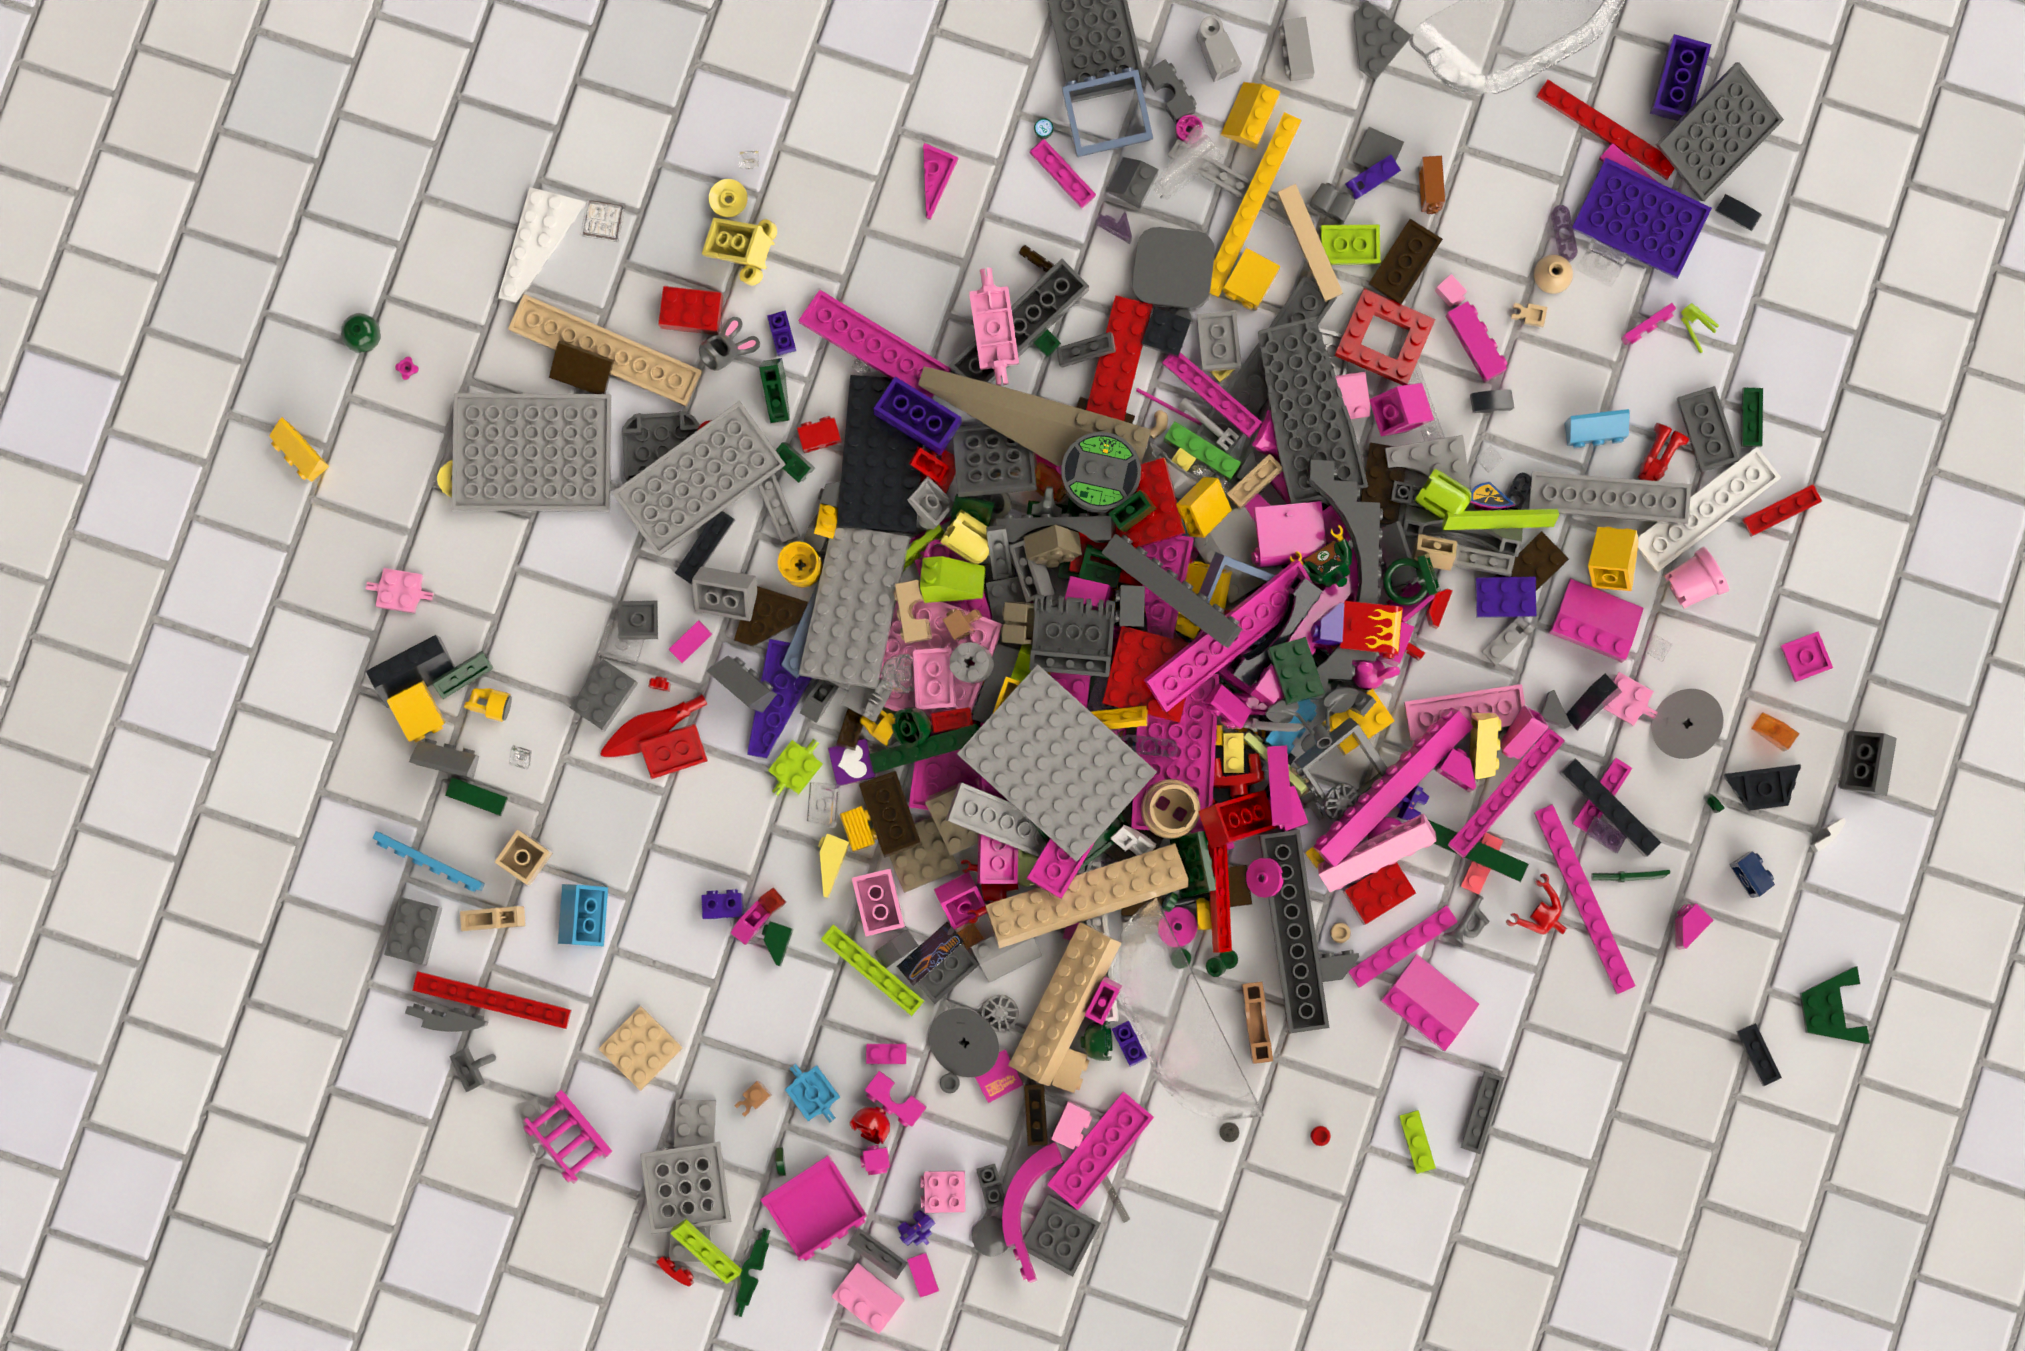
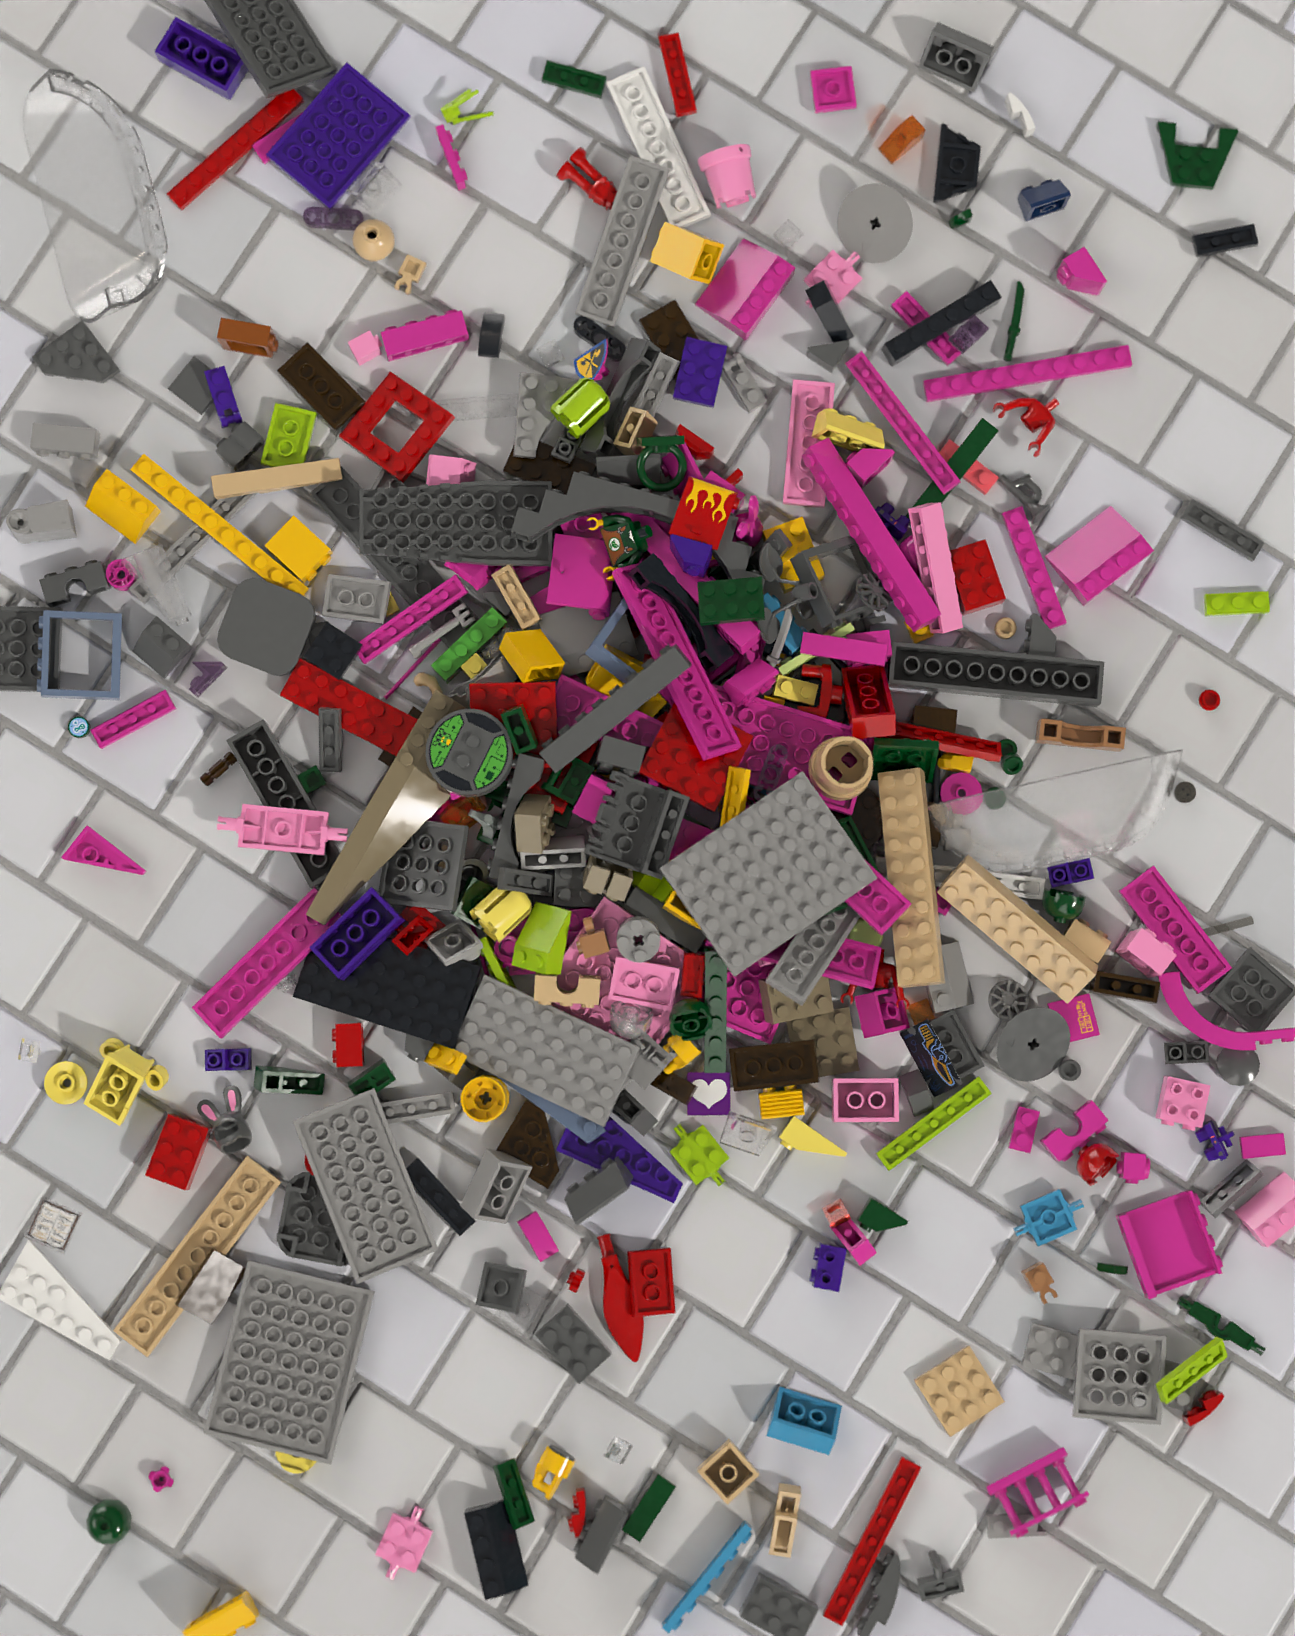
camera: 85 degrees left, 0 degrees up
(416, 712) = (542, 1553): yellow brick -> none
(453, 736) = (577, 1518): none -> red slope
(1103, 1000) = (1024, 887): dark pink brick -> none
(1134, 840) = (863, 815): white slope -> none
(1169, 901) = (935, 794): dark green tile -> none
(1272, 877) = (931, 680): dark pink plate -> none
(1401, 409) = (478, 427): dark pink brick -> none
(1500, 519) = (619, 355): lime tile -> none
(1523, 733) = (845, 388): dark pink slope -> none
(1597, 428) = (547, 235): slope -> none
(1707, 429) = (575, 126): dark grey plate -> none
(1738, 212) = (357, 37): black slope -> none

